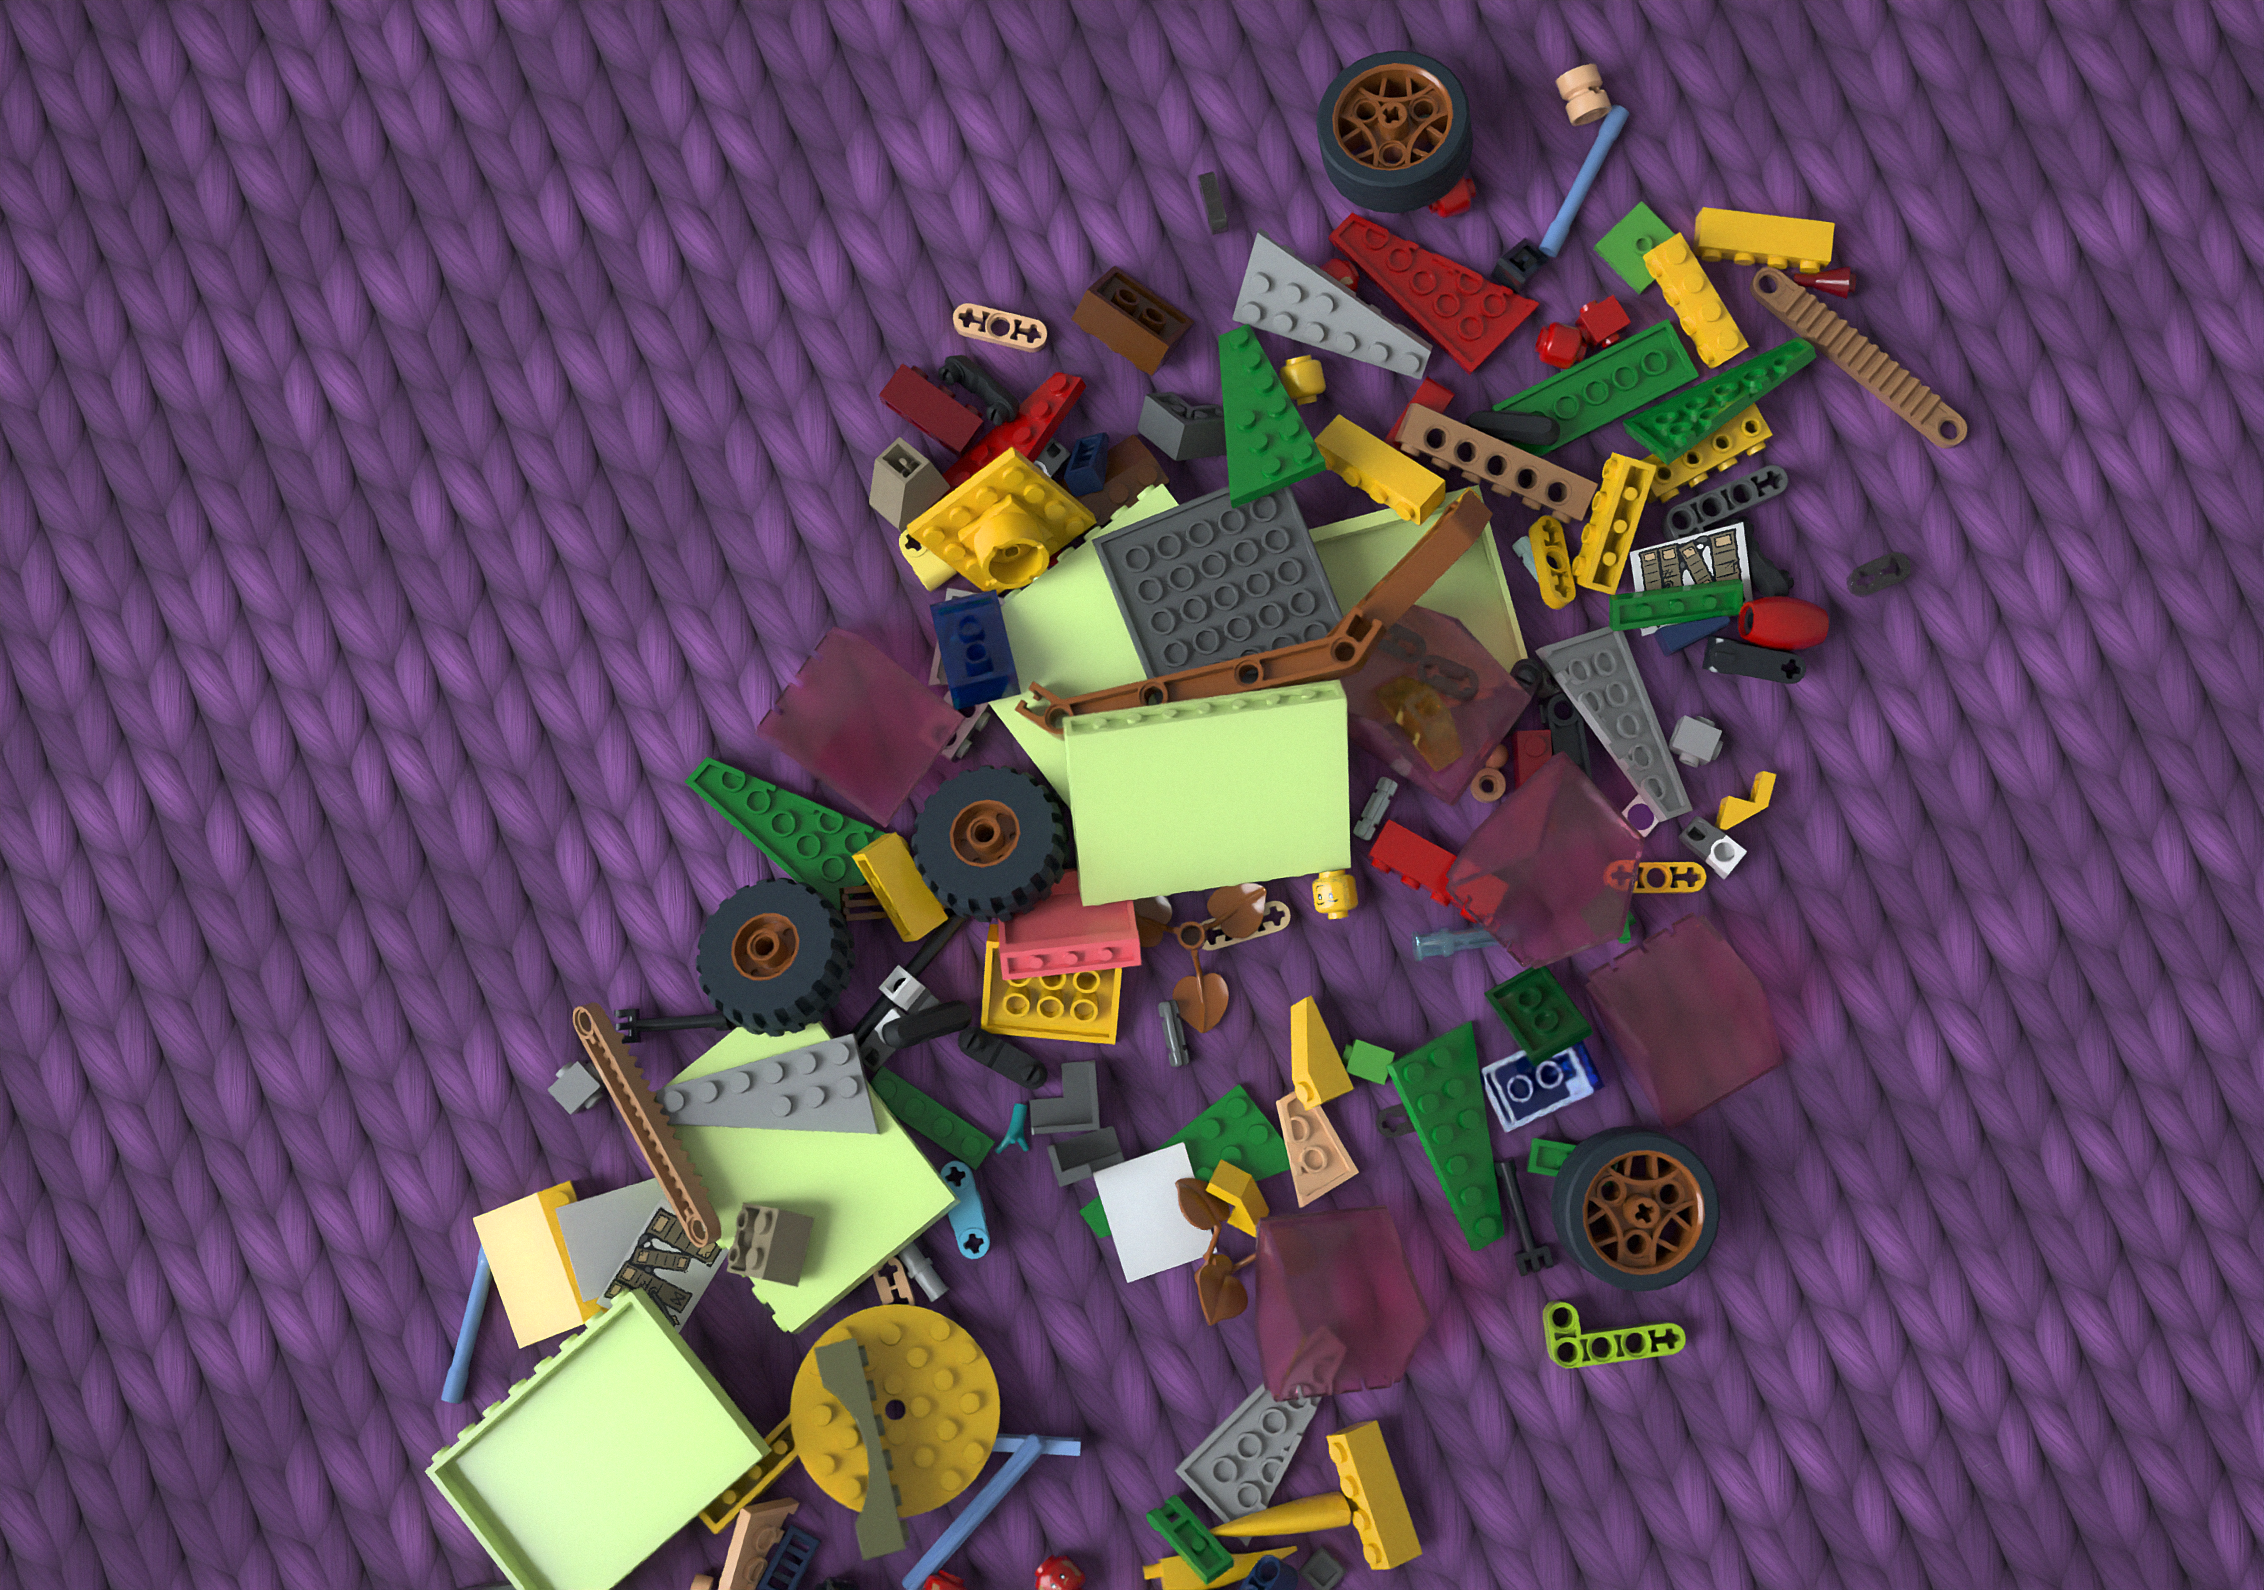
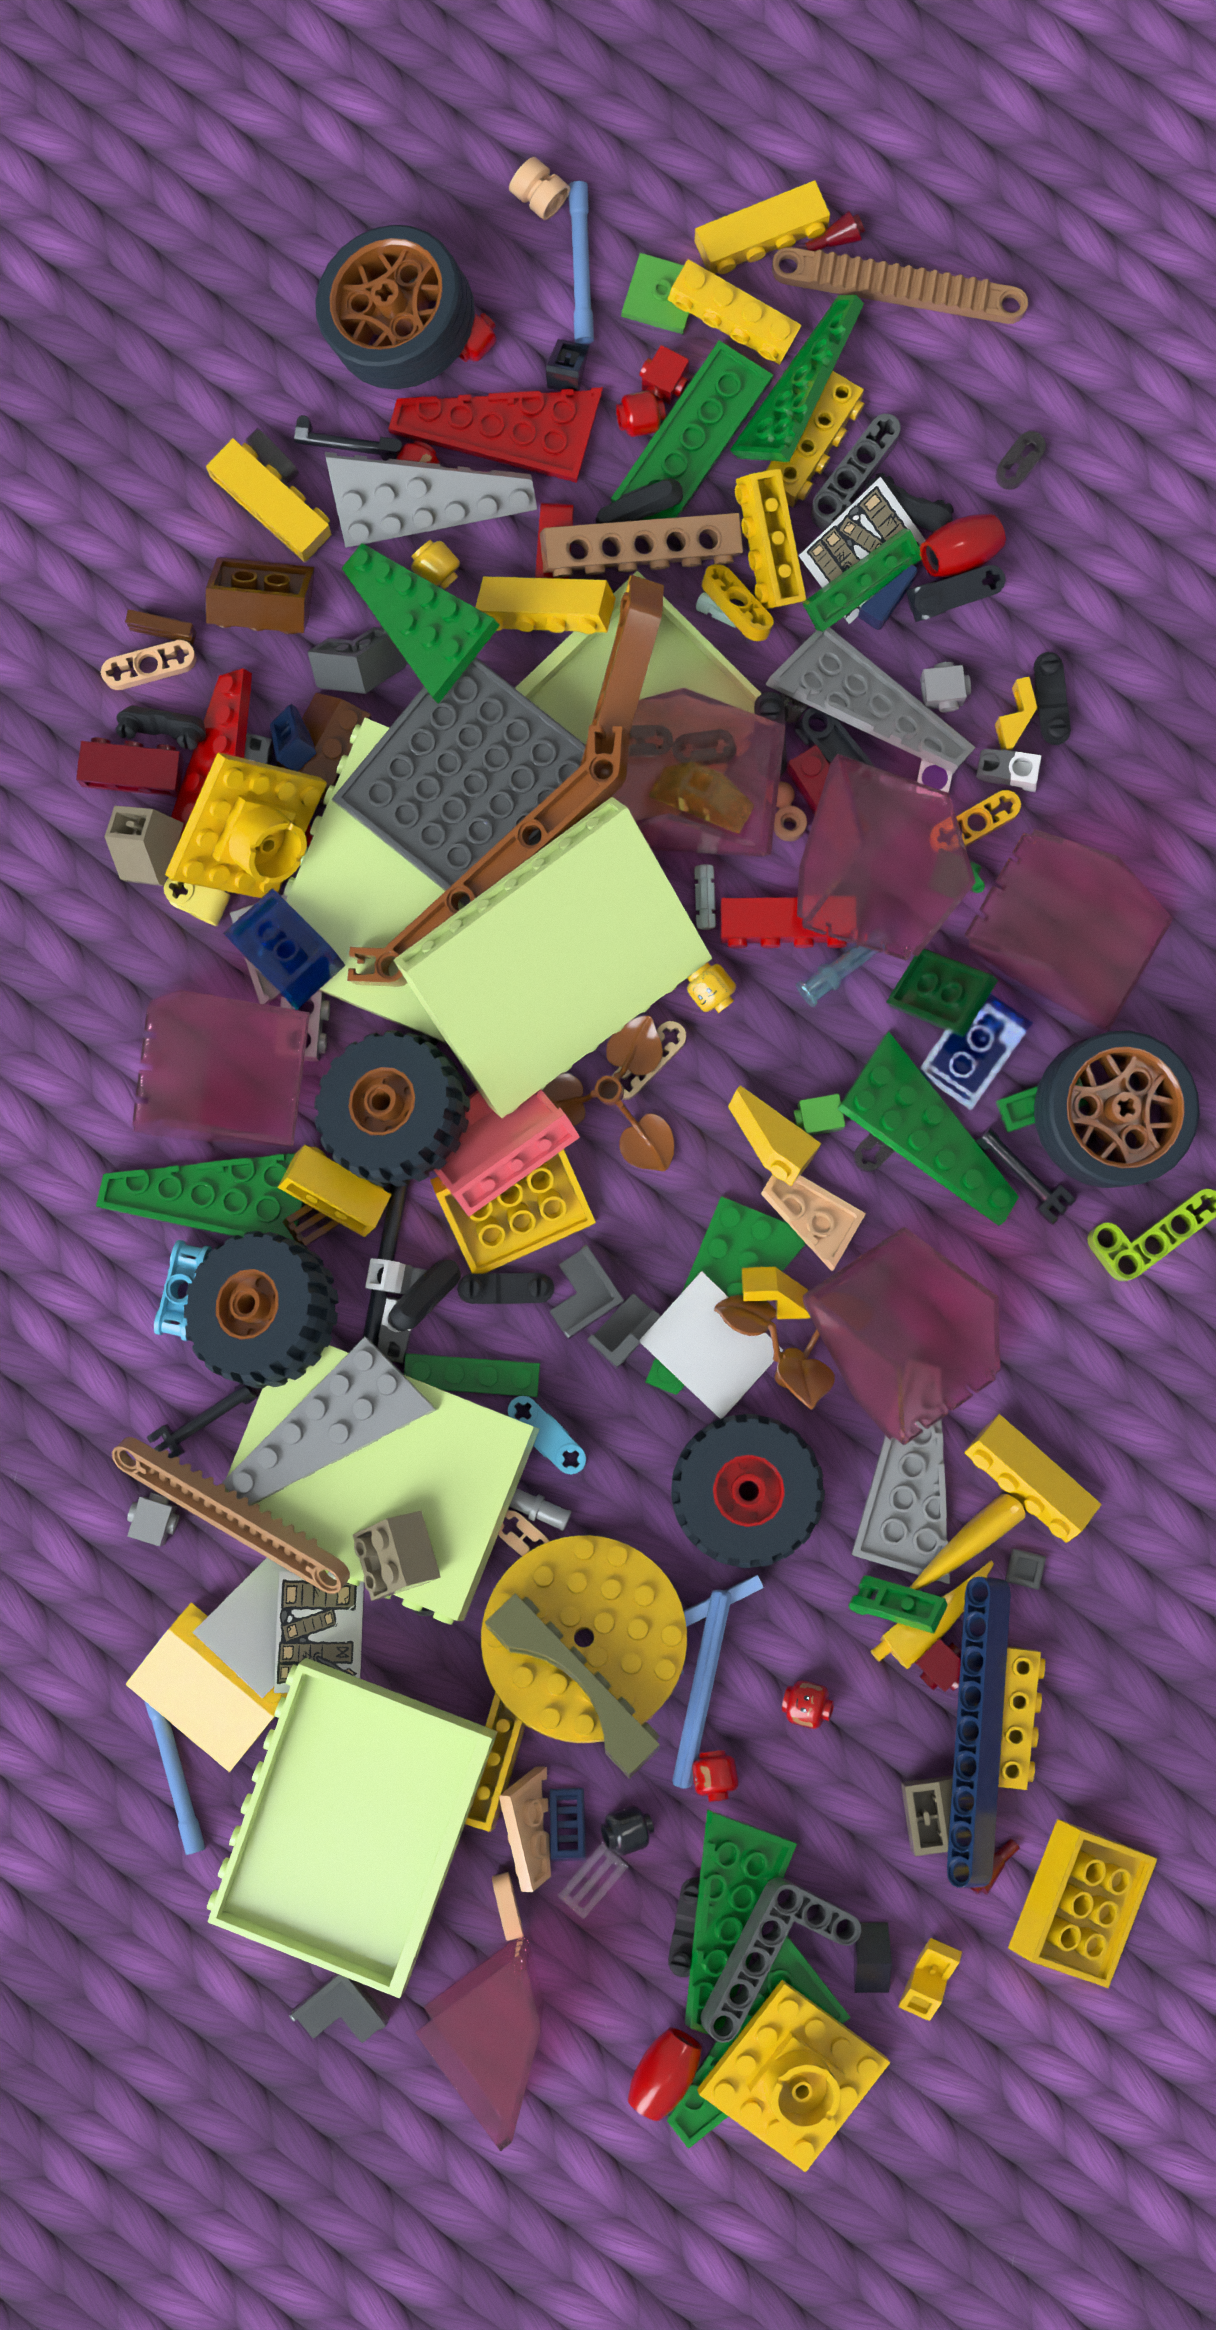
camera: 25 degrees left, 0 degrees up
(727, 881) = (180, 1271): none -> medium azure piece
(1015, 1130) = (552, 1344): teal bar -> none
(1029, 300) = (160, 626): none -> reddish brown tile
(1120, 1399) = (785, 1498): none -> black wheel
(1174, 1033) = (641, 1184): dark grey axle -> none
(1188, 241) = (269, 500): none -> yellow brick
(1317, 251) = (386, 447): none -> black hinge
(1786, 804) = (1052, 698): none -> black piece

